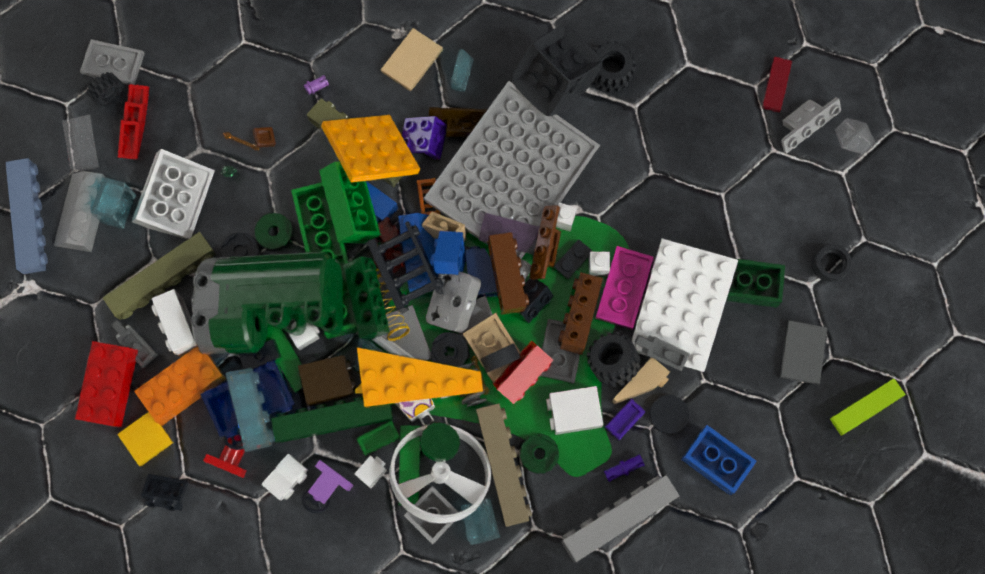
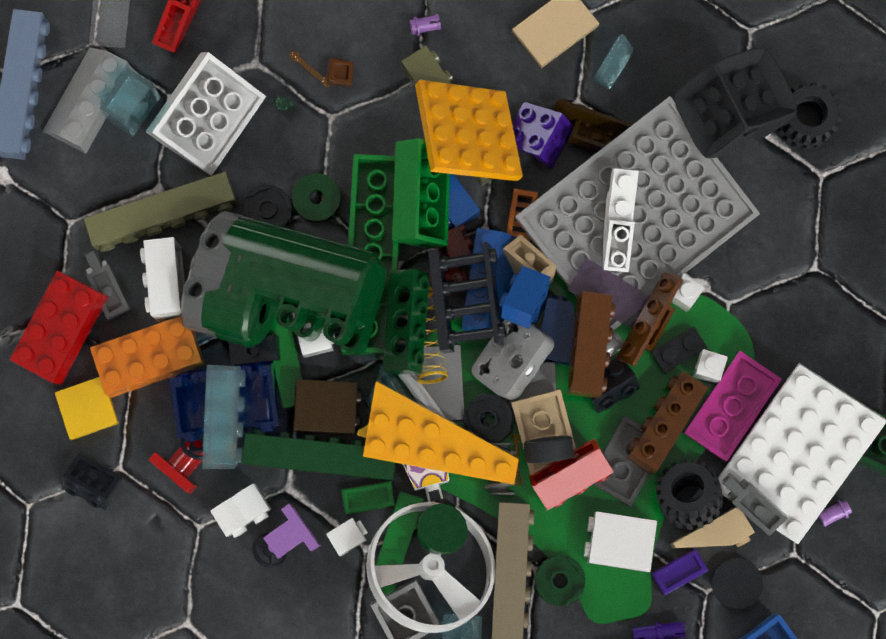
camera: 20 degrees right, 5 degrees up
(499, 177) = (619, 220): none -> white slope
(723, 340) = (835, 512): none -> medium lavender pin

